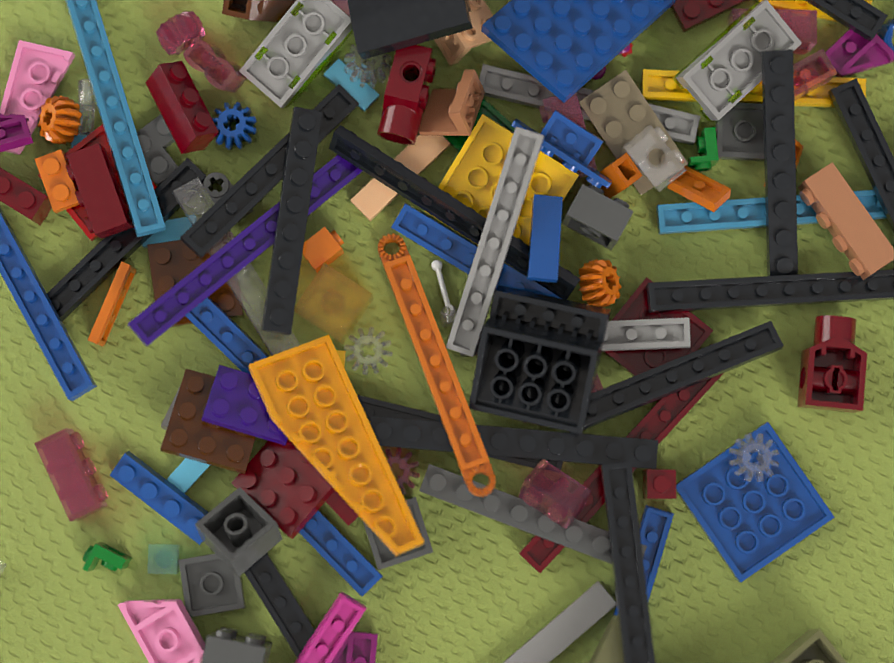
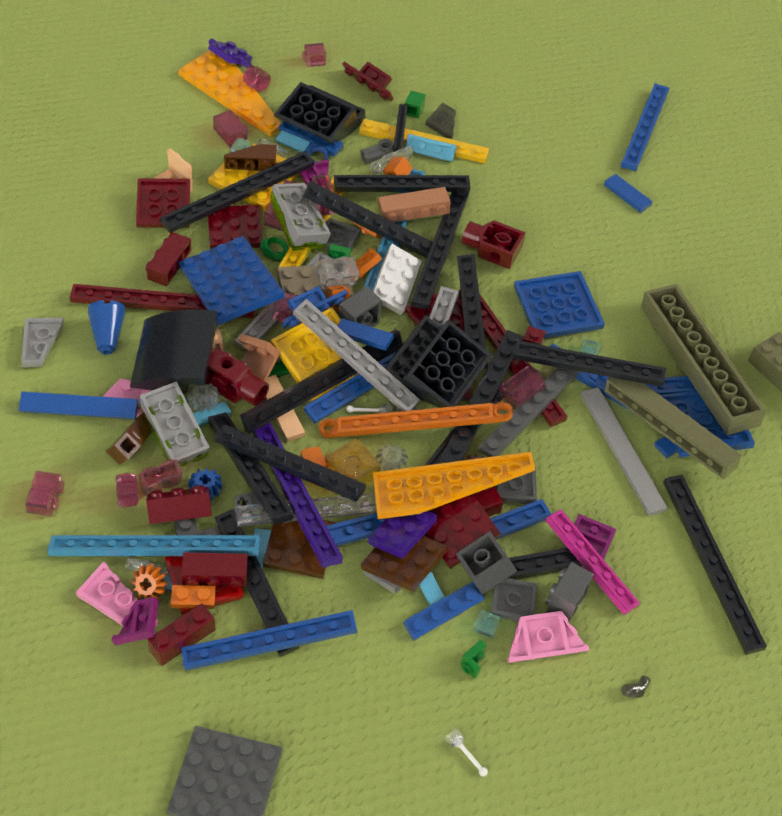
camera: 75 degrees left, 30 degrees down
(72, 474) = (406, 661): clear pink brick -> none
(112, 304) = (294, 595): orange tile -> none
(599, 283) = (403, 325): orange gear -> none
(677, 36) = (276, 256): none -> green piece
(683, 572) = (590, 347): none -> clear light blue plate
(695, 245) = (396, 278): none -> white plate
(764, 458) = (534, 289): clear gear -> none

